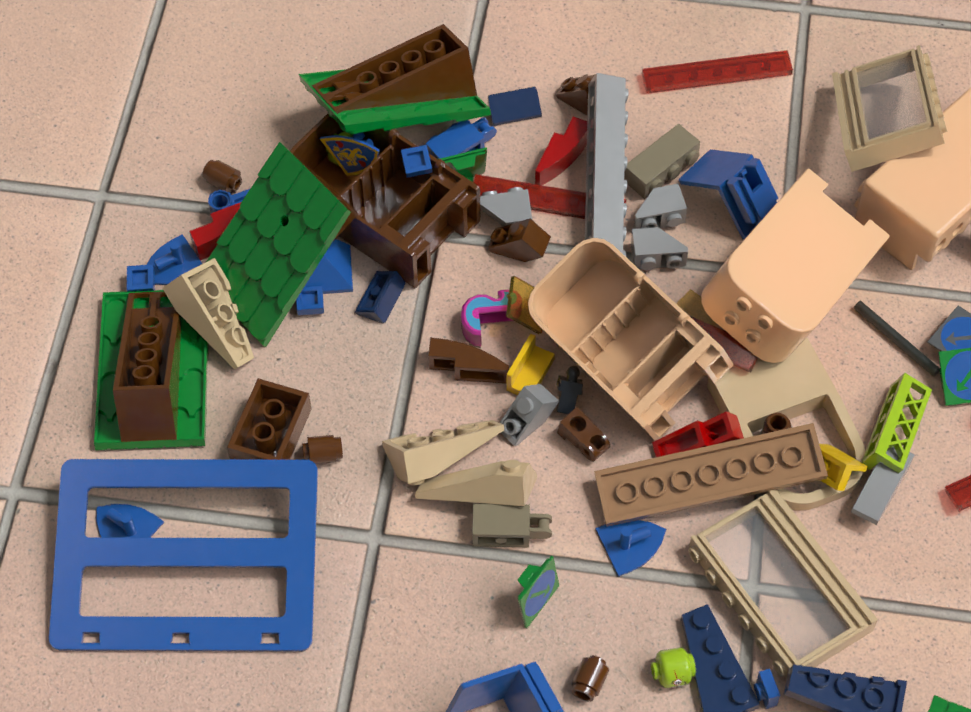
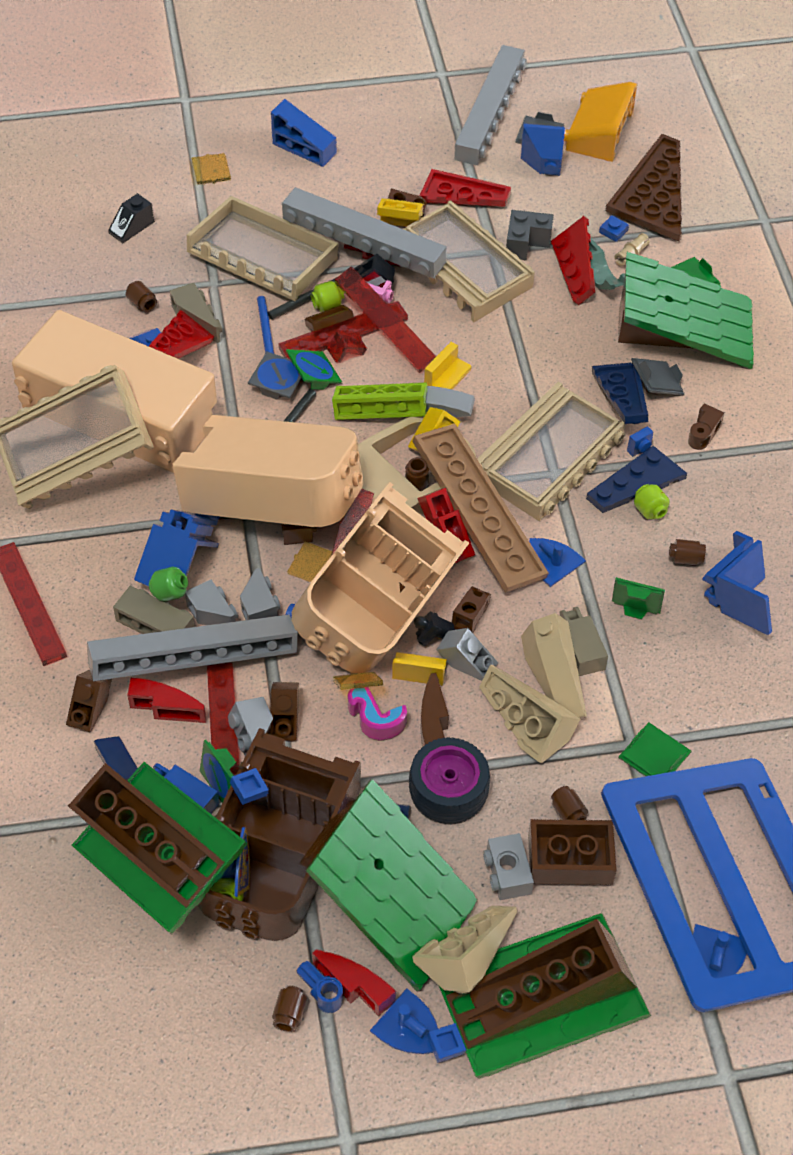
camera: 110 degrees left, 5 degrees down
(296, 370) = (508, 851): none -> light grey brick
(355, 555) = (654, 752): none -> green piece
(386, 349) = (449, 780): none -> wheel
(684, 164) = (167, 584): none -> bright green head
(937, 517) = (446, 368): none -> yellow panel

